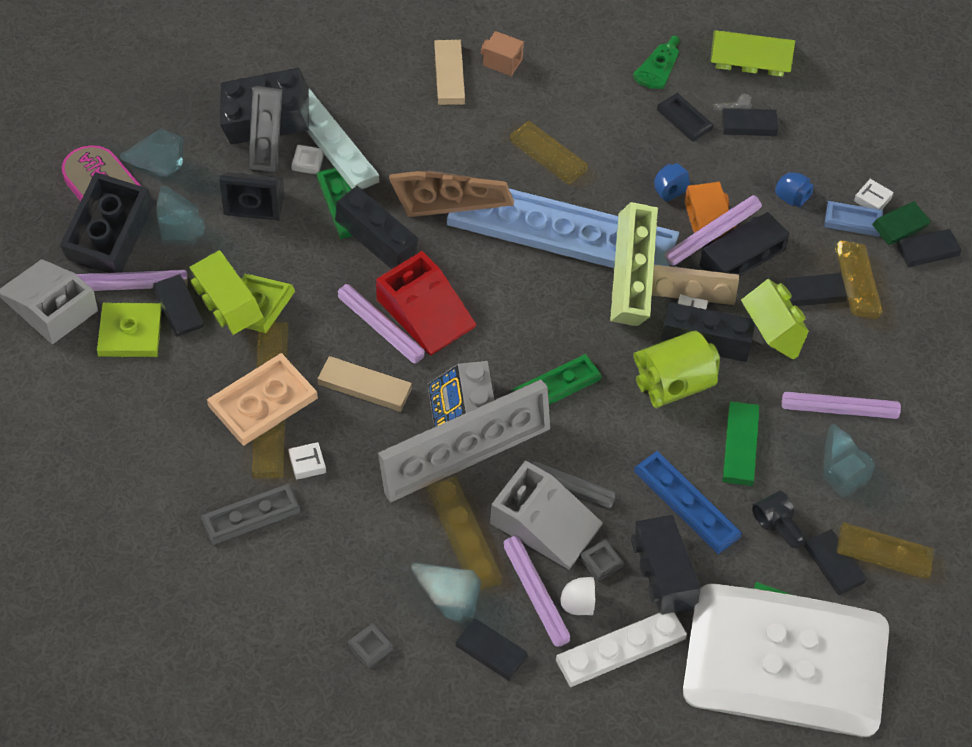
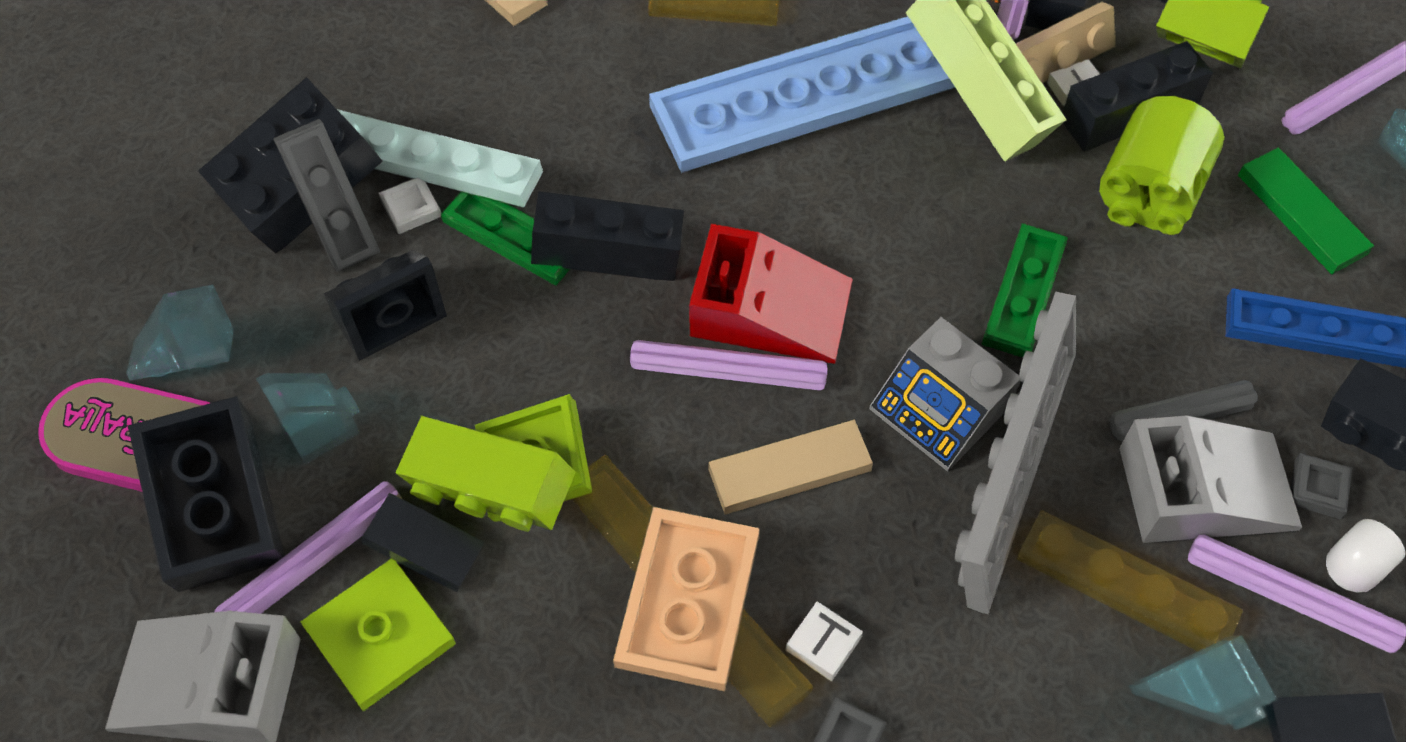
camera: 35 degrees left, 5 degrees up
(441, 193) = (652, 129): medium nougat wedge -> none

